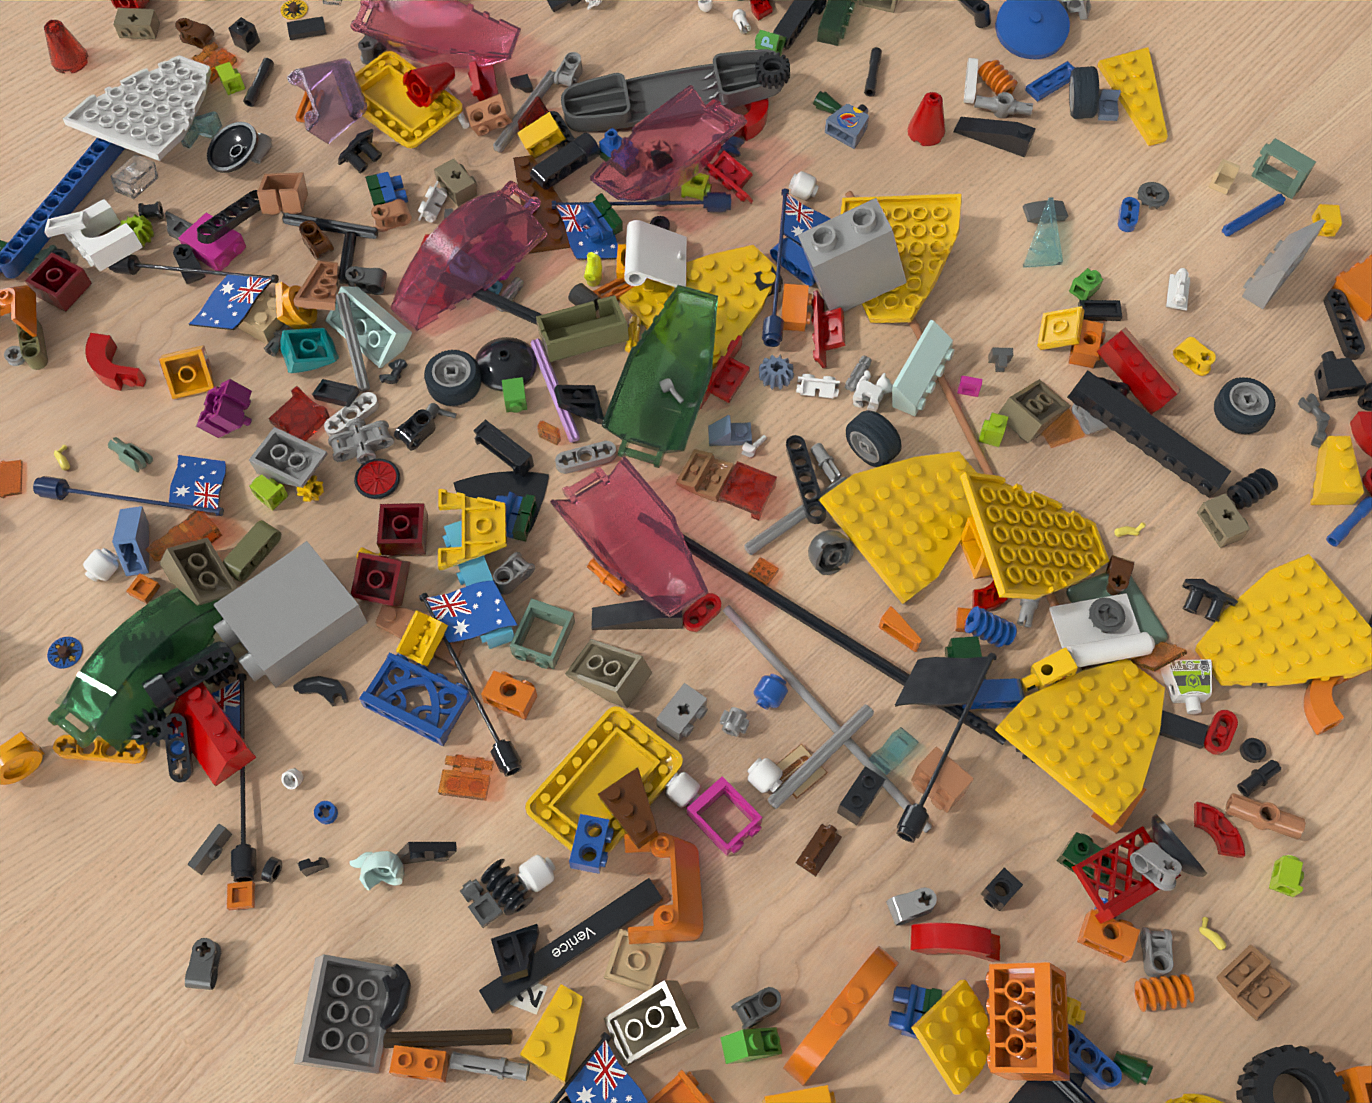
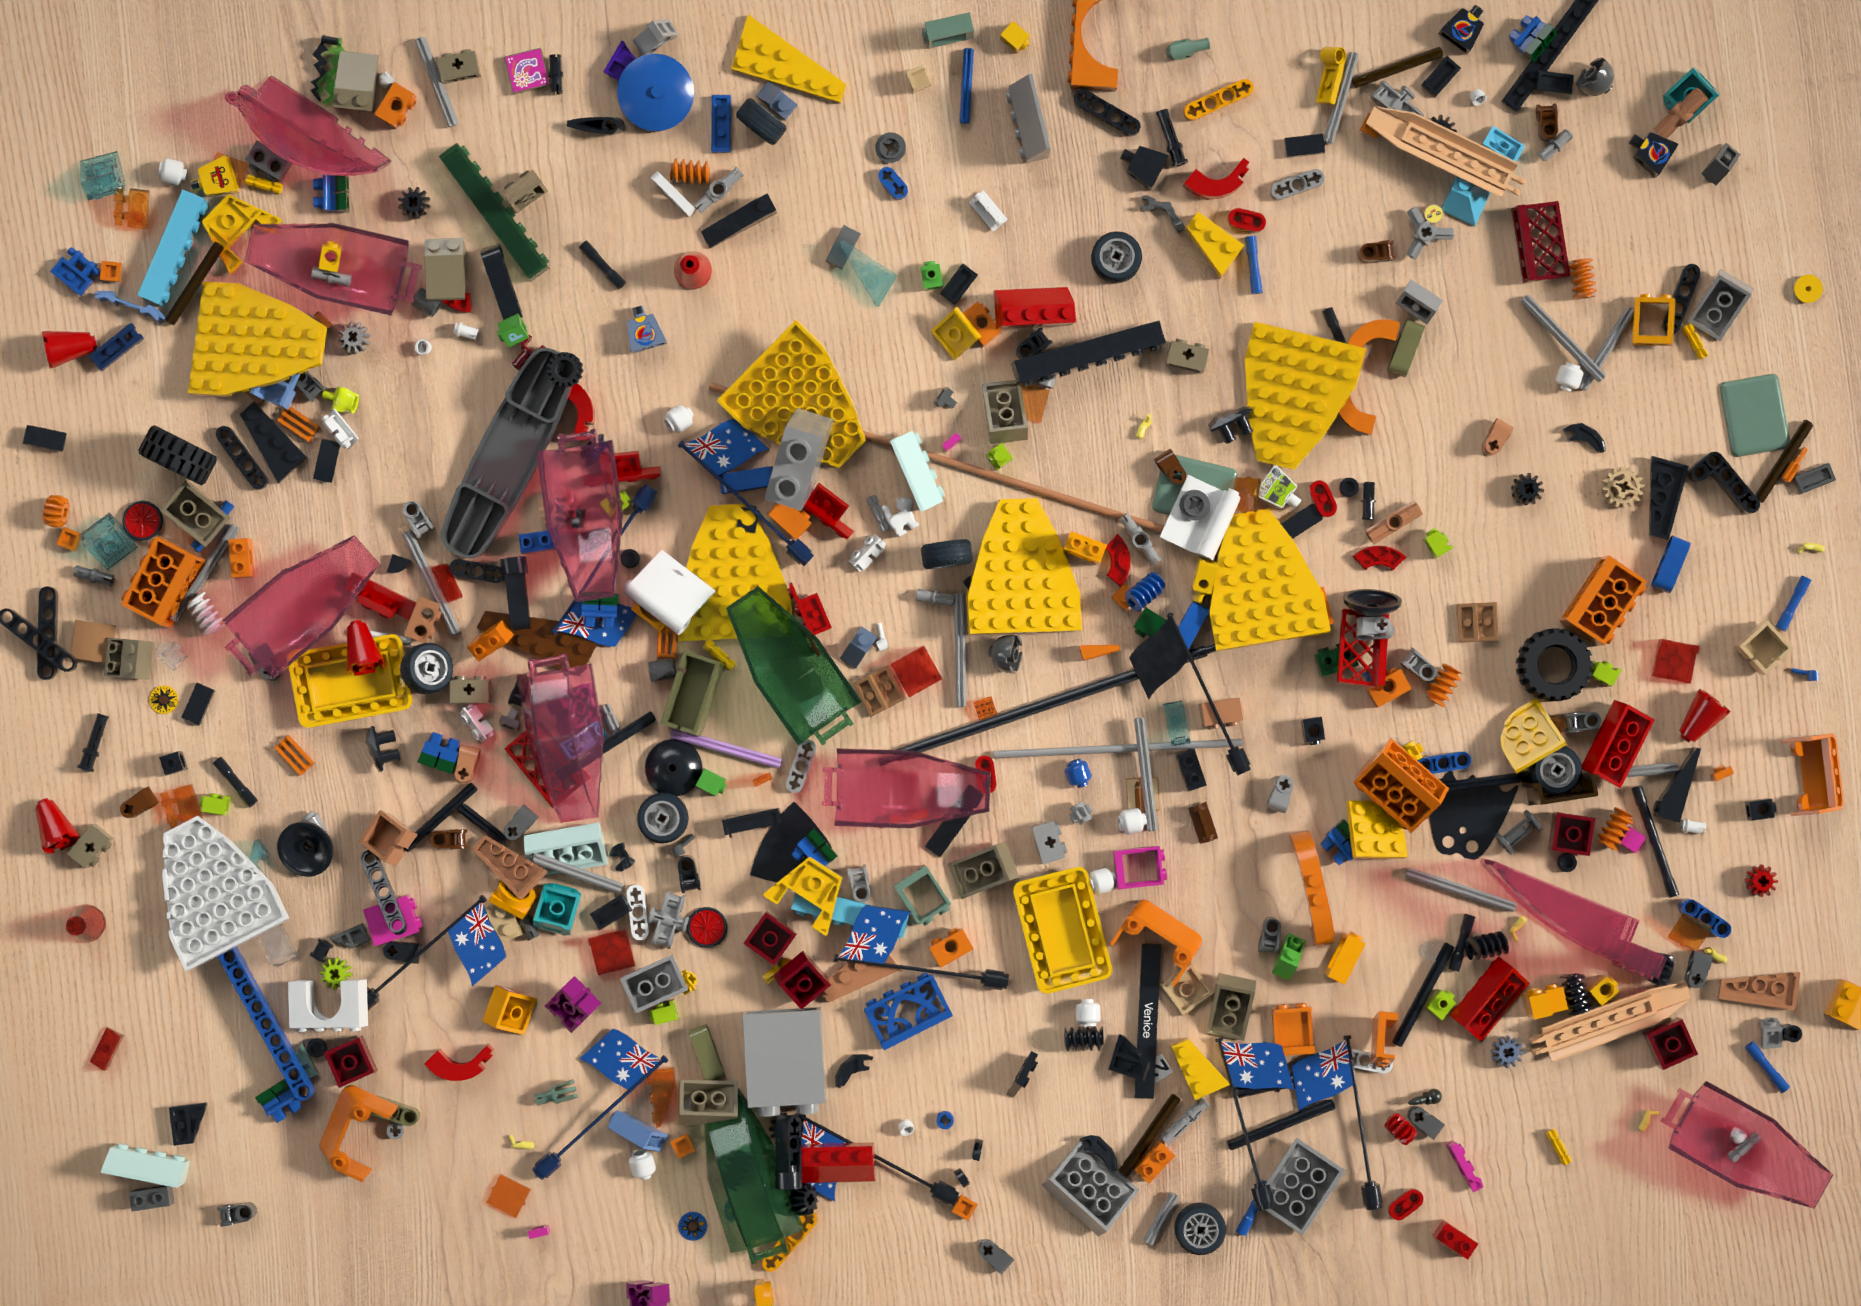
camera: 55 degrees left, 25 degrees up
(66, 223) = (300, 1025): white tile -> none
(172, 766) = (836, 1195): black beam -> none
(210, 849) = (919, 1208): dark grey plate -> none
(333, 95) = (309, 735): windscreen -> none
(378, 867) = (1010, 1109): light aqua hair -> none
(421, 638) = (870, 980): yellow bracket -> none
(453, 125) = (426, 668): none -> wheel
(465, 784) = (992, 1018): clear orange plate -> none
(484, 907) = (1085, 1060): dark grey plate -> none
(509, 164) = (490, 640): none -> orange brick
(541, 135) = (475, 592): yellow brick -> none
(580, 401) = (753, 738): black wing -> none
(585, 843) = (1095, 972): blue brick -> none
(593, 269) = (640, 644): neon yellow piece -> none
(630, 807) = (1091, 926): reddish brown wing -> none
(667, 385) = (787, 665): light grey hand -> none
(776, 372) = (827, 574): sand blue gear -> none
(805, 487) = (930, 619): black beam -> none
(826, 103) = (608, 331): dark green cone -> none
(955, 939) = (1323, 786): red arch -> none
(1030, 539) = (1110, 516): yellow wing -> none
(1133, 1067) = (1468, 739): dark green cone -> none
(1193, 354) = (1045, 253): yellow piece -> none
(1211, 935) = (1435, 622): light yellow piece -> none
(1252, 488) = (1180, 313): black piece -> none

